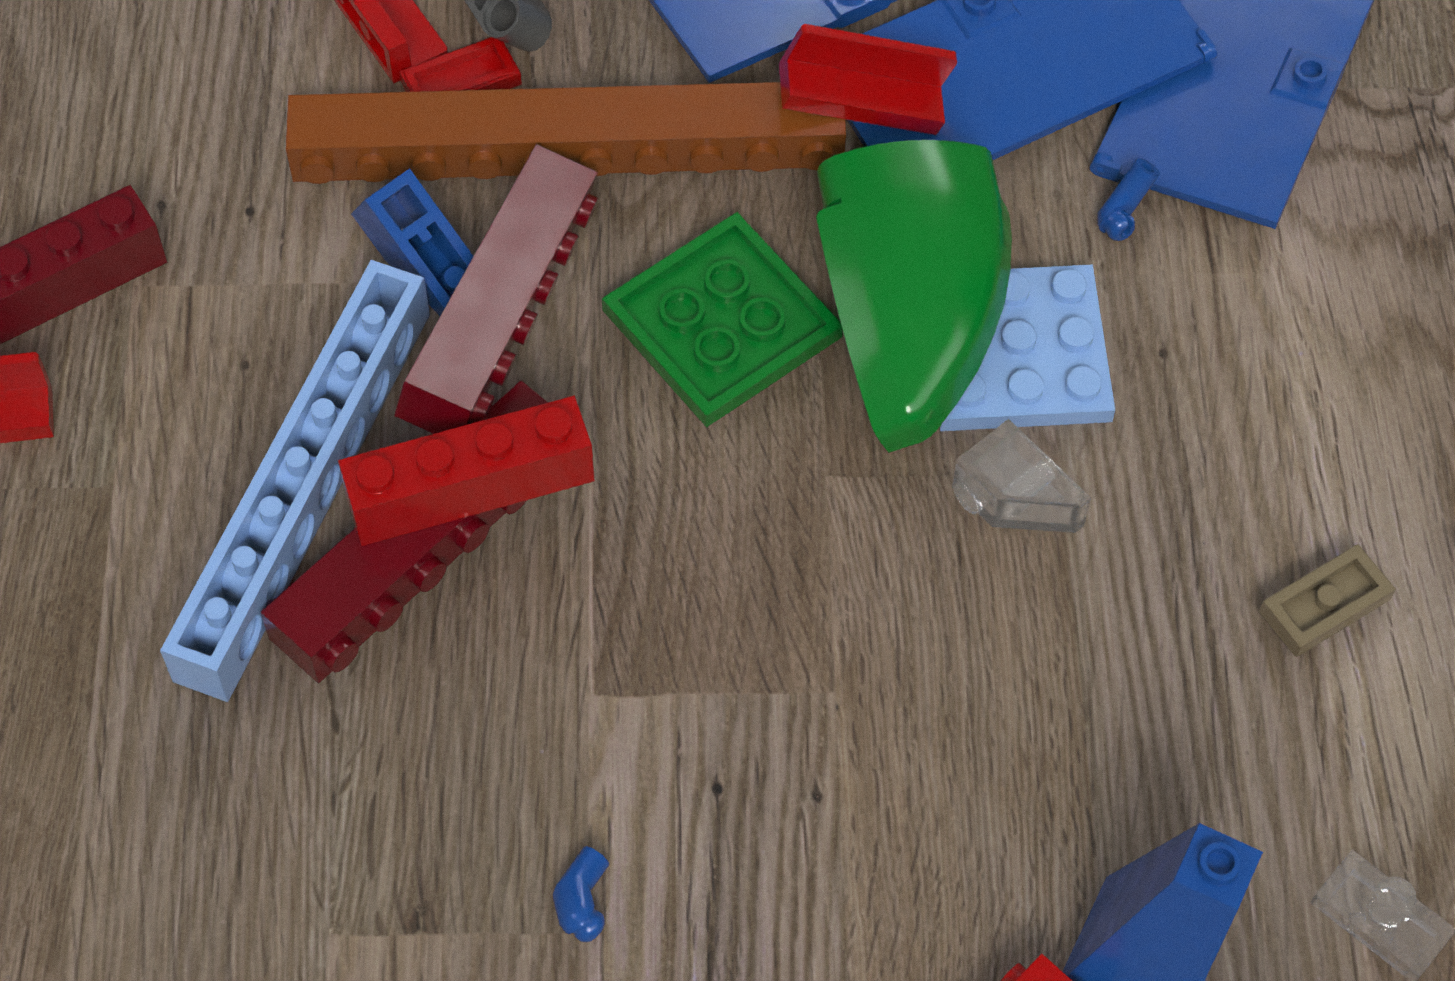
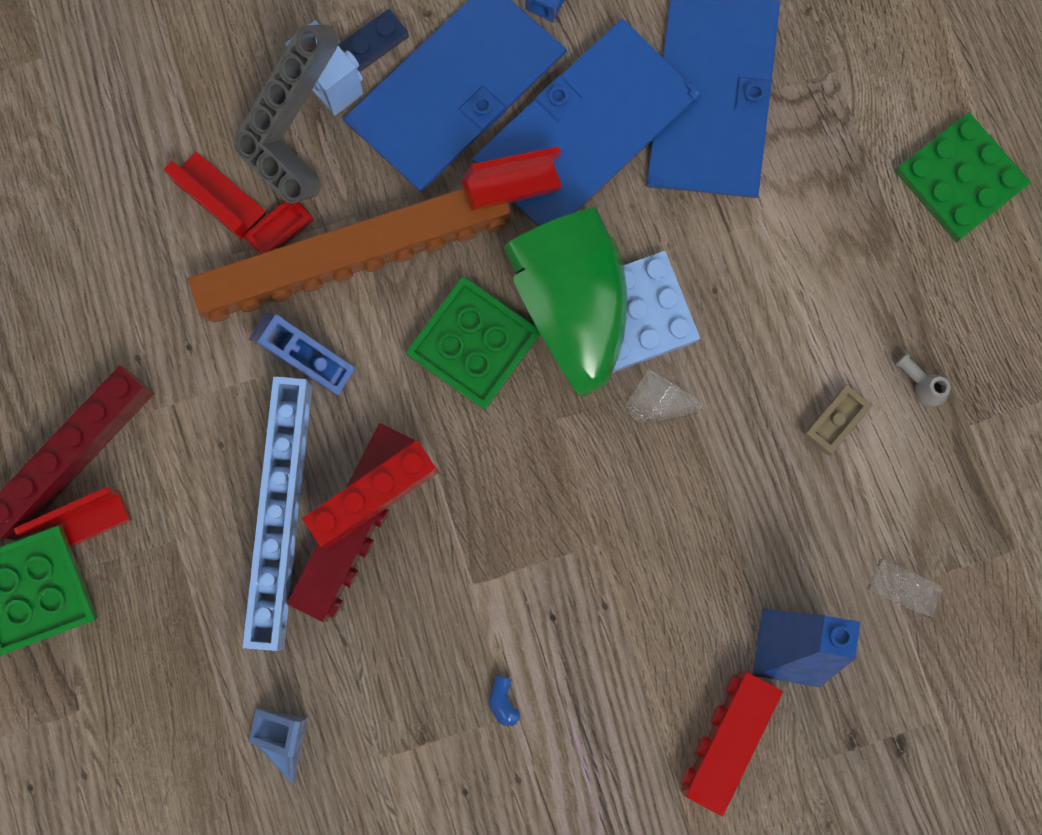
camera: 20 degrees left, 20 degrees up
(165, 843) = (279, 738): none -> medium blue slope
(497, 294) = (350, 374): brick -> none
(1116, 212) = (672, 200): blue arm -> none

